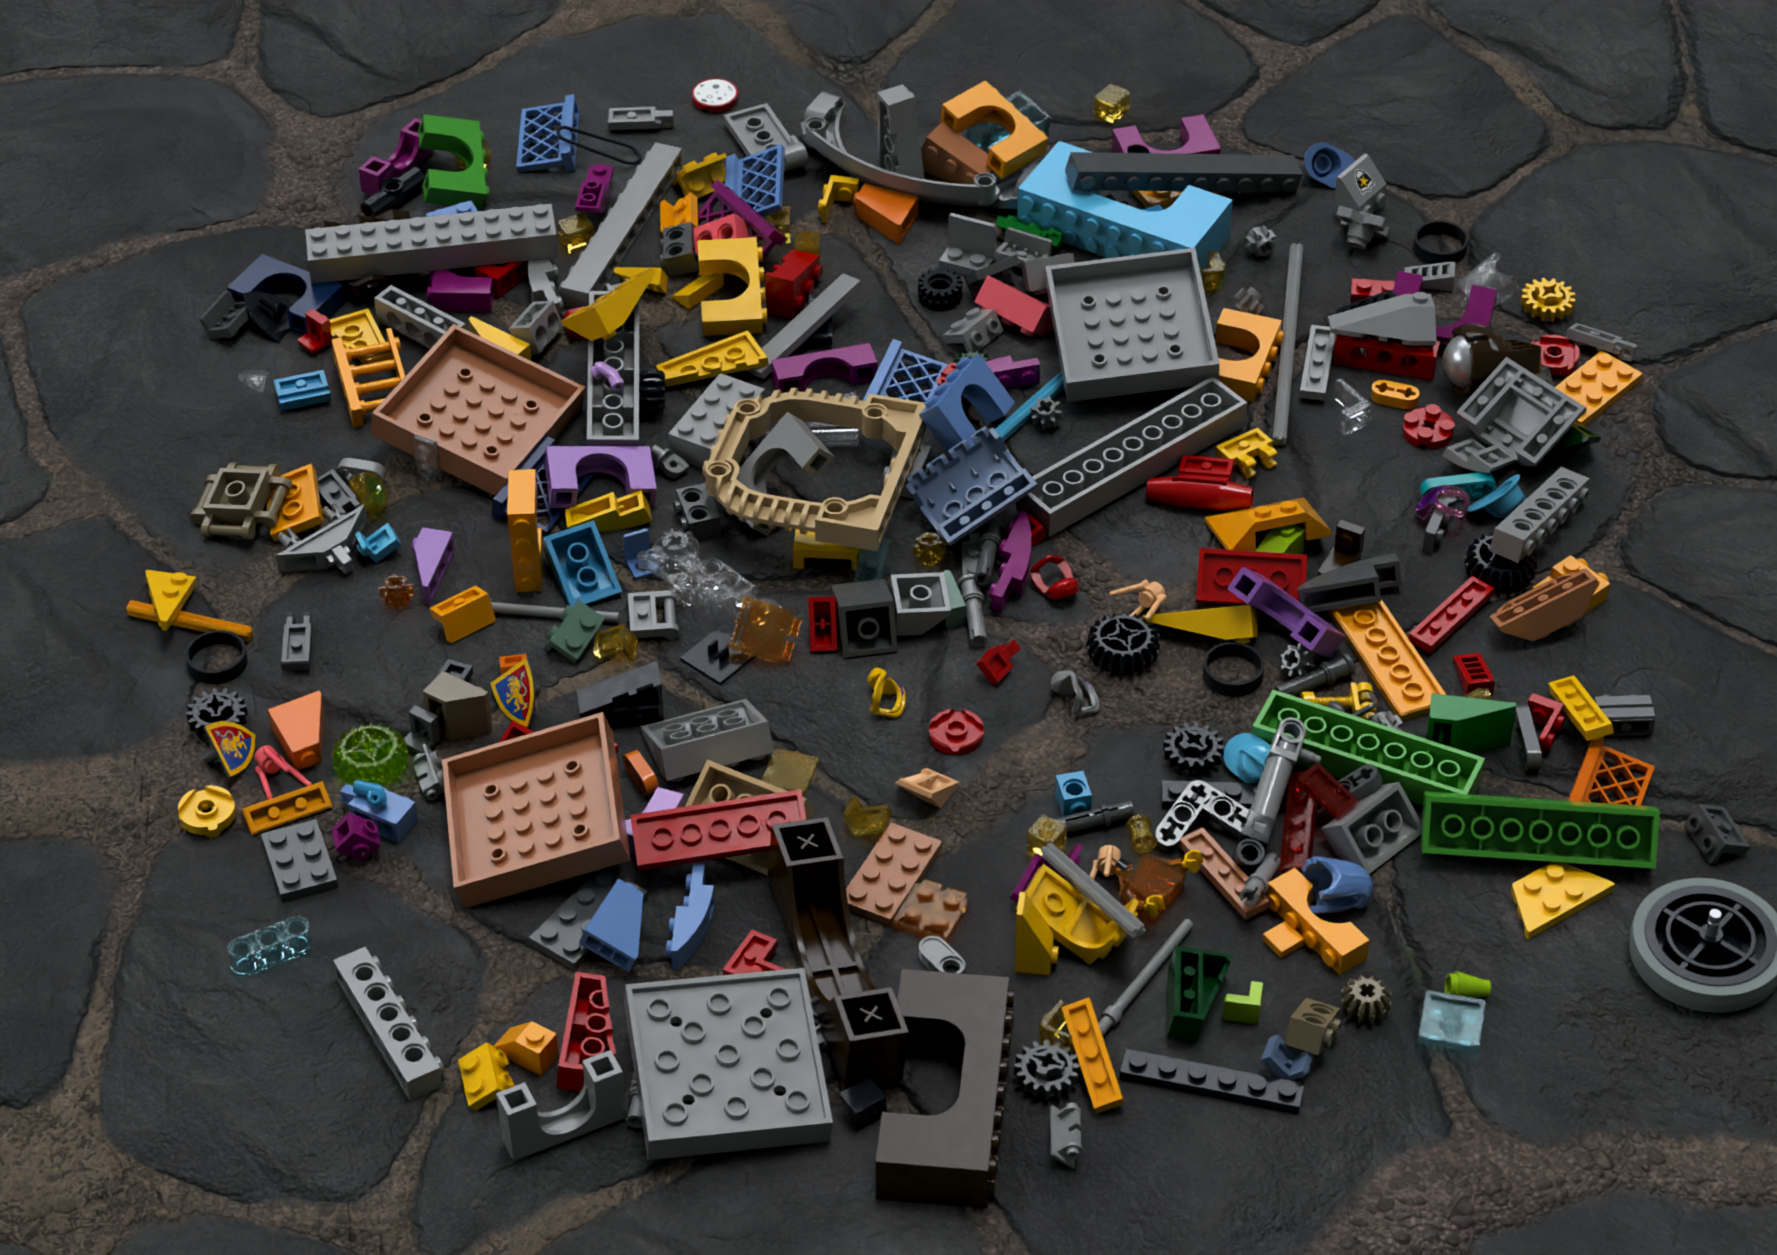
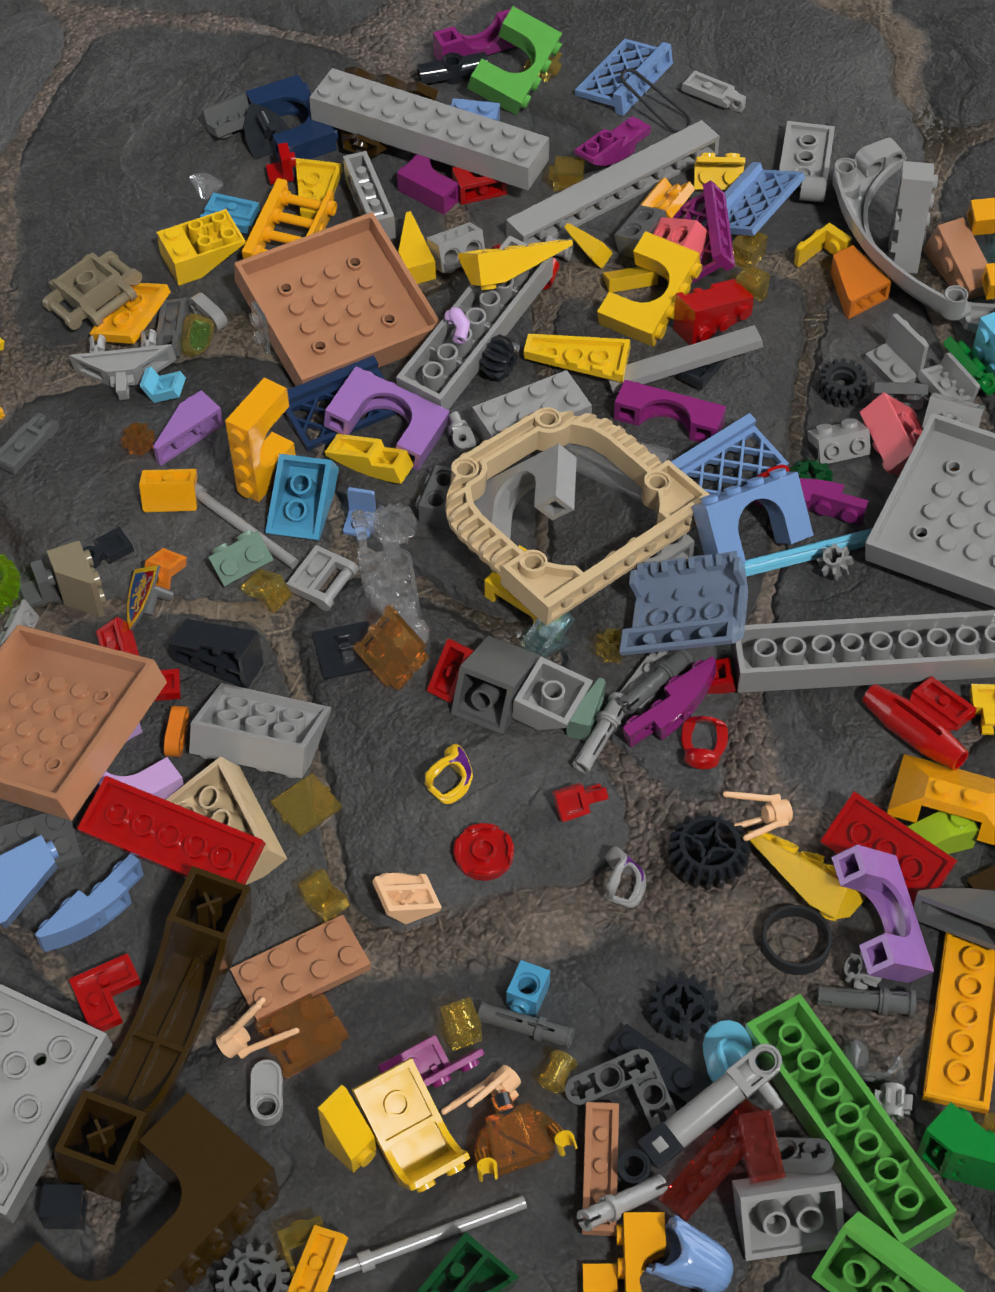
camera: 35 degrees right, 10 degrees up
(304, 425) = (199, 245): none -> yellow slope
(543, 282) = (499, 206): light grey slope -> none
(715, 95) = (799, 99): tile -> none
(888, 937) = (235, 1038): none -> light nougat plant
(1093, 891) = (436, 1119): light grey axle -> none
(1356, 693) = (901, 1041): yellow bar -> none

